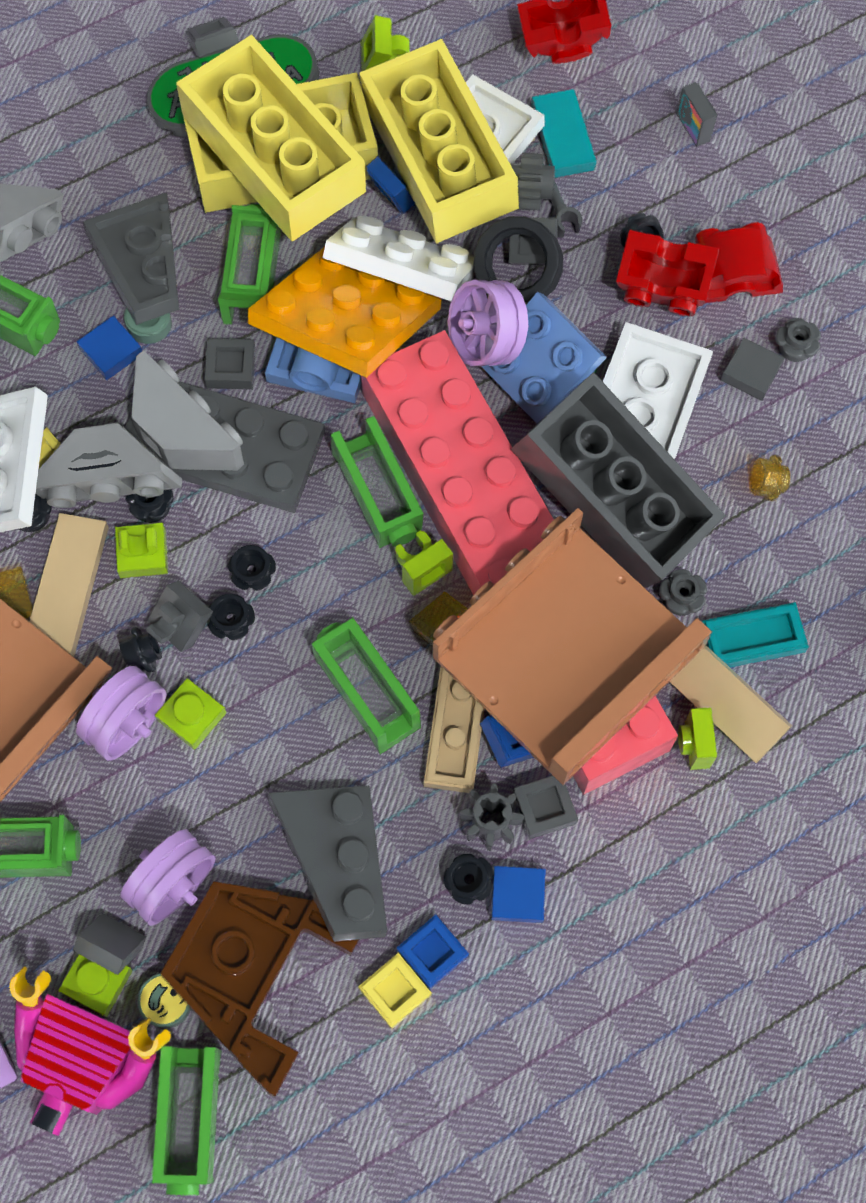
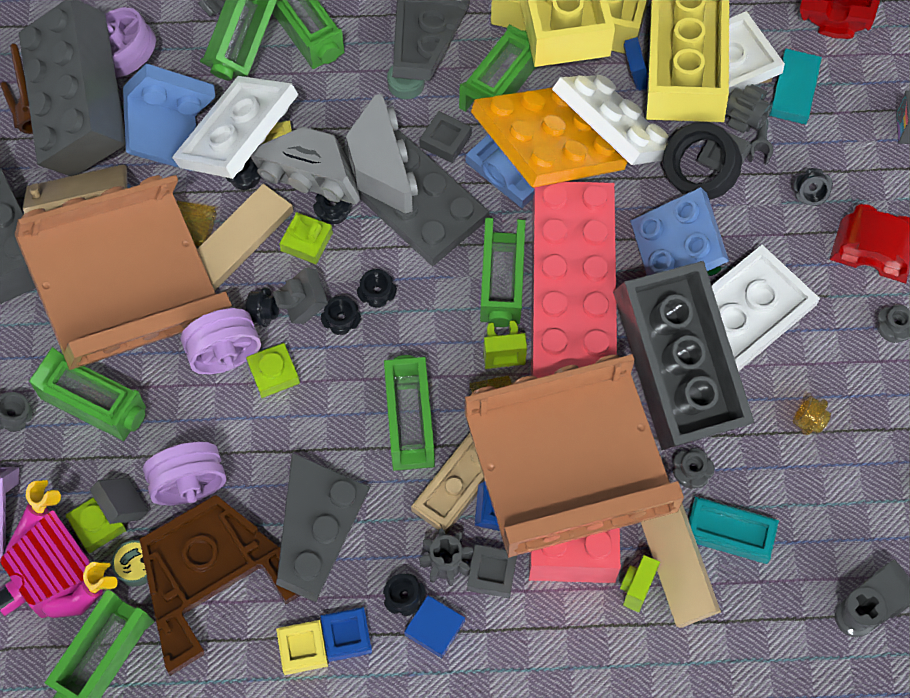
camera: 30 degrees right, 5 degrees down
(109, 347) = (366, 83): blue tile -> none
(490, 328) = (648, 191): lavender wheel -> none
(666, 273) = (813, 221): red cylinder -> none
(752, 369) = (846, 328): dark grey tile -> none

